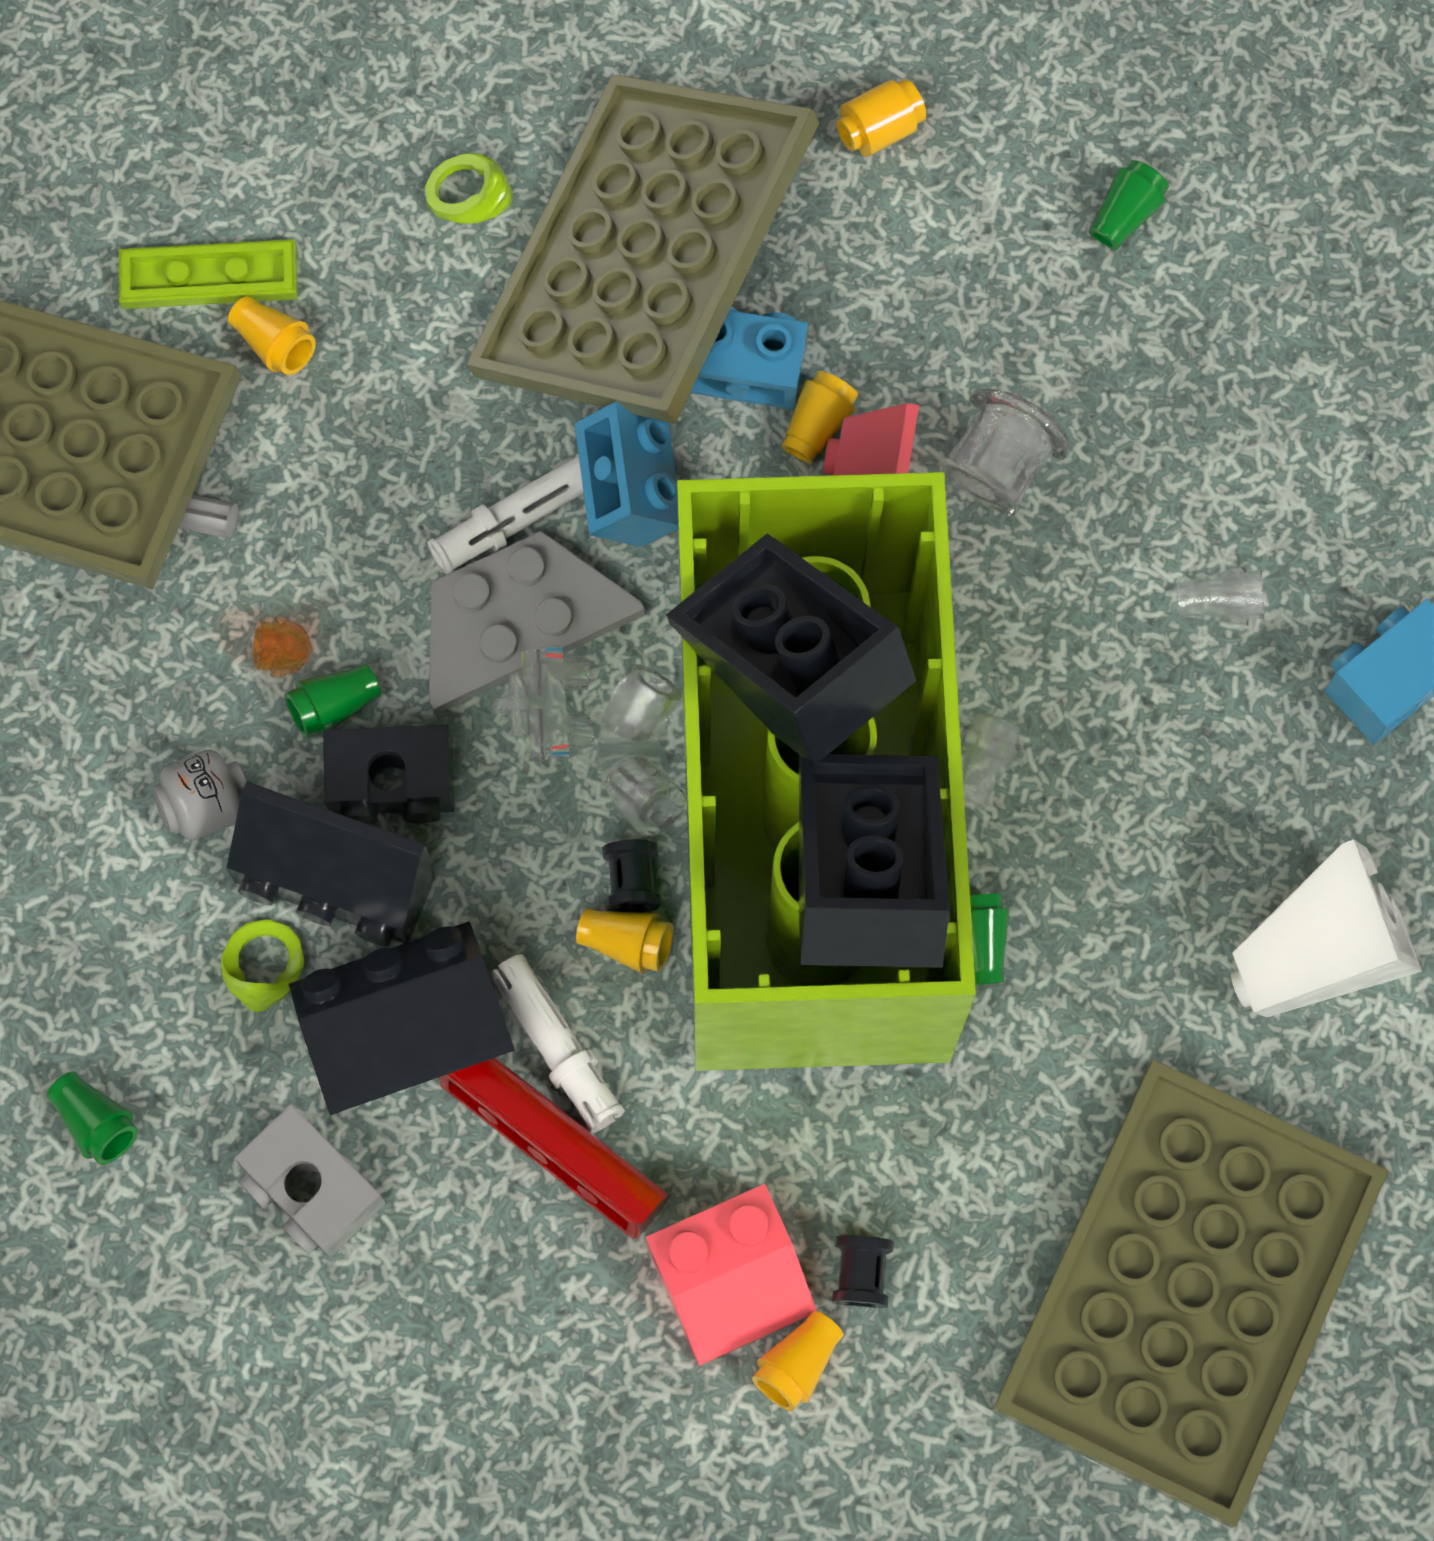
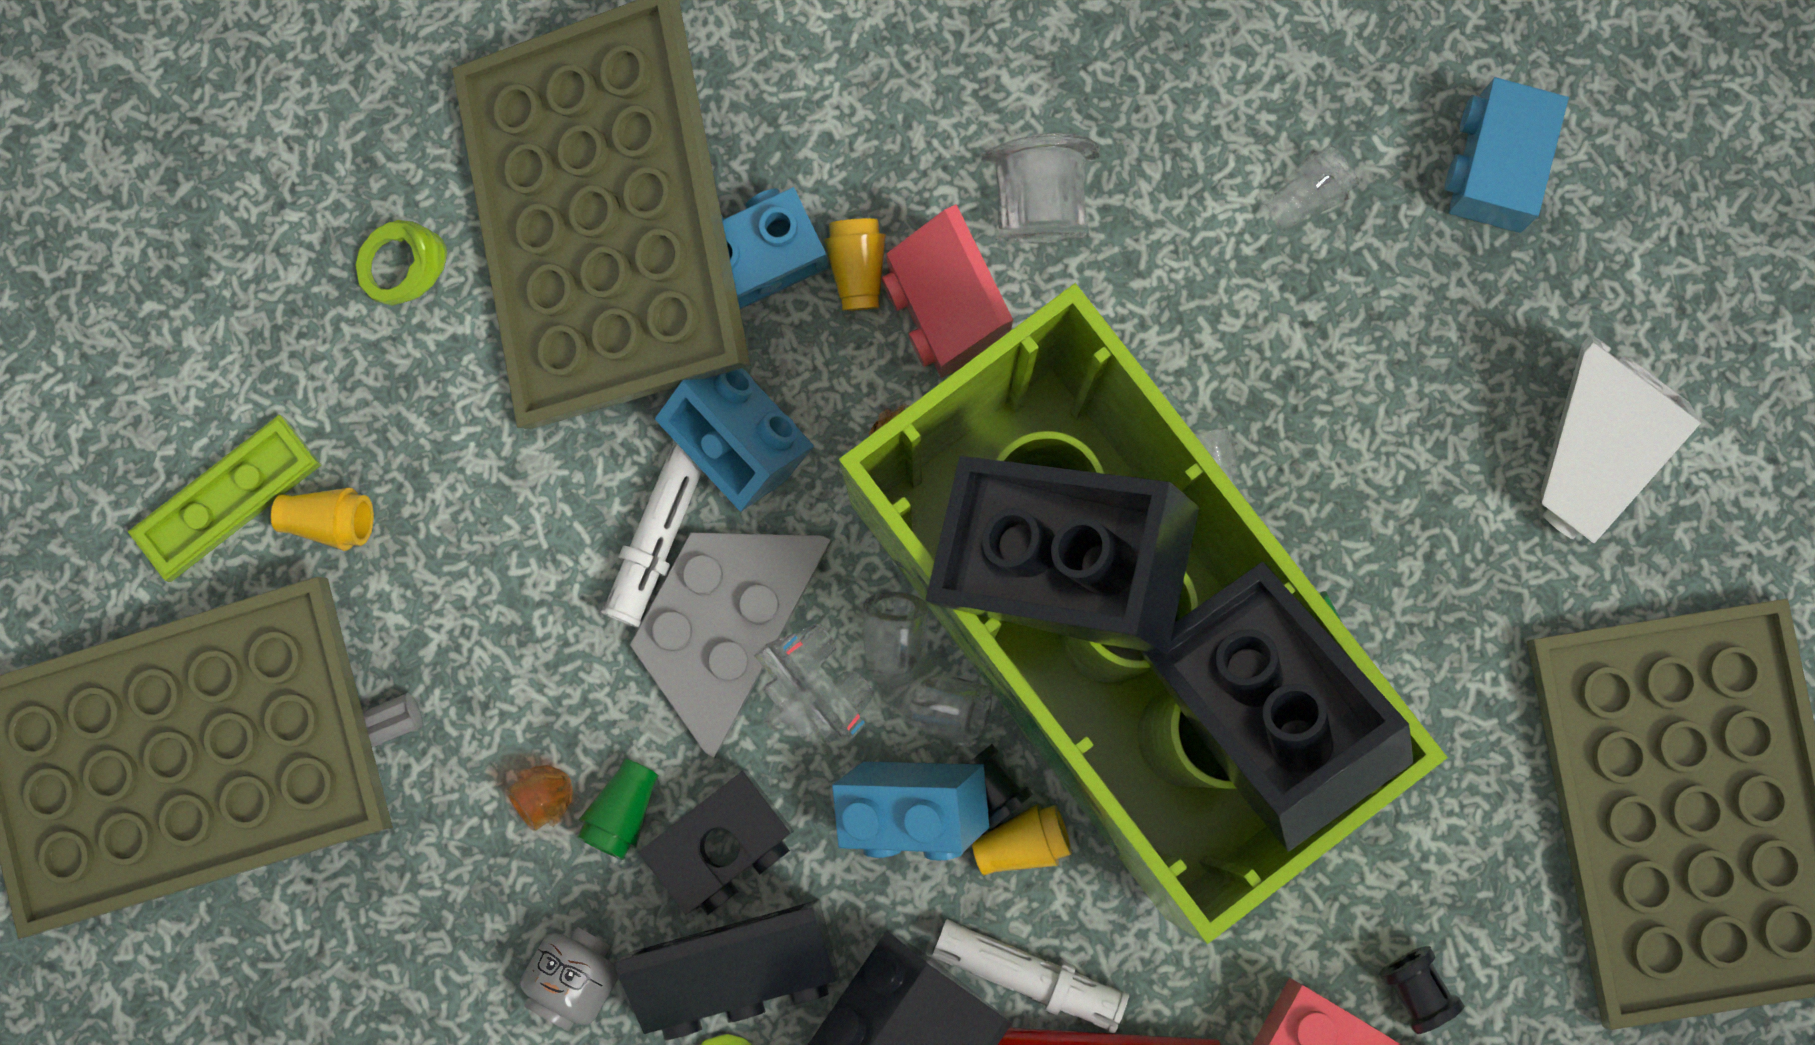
camera: 30 degrees left, 10 degrees up
(557, 840) = (911, 808): none -> dark azure brick

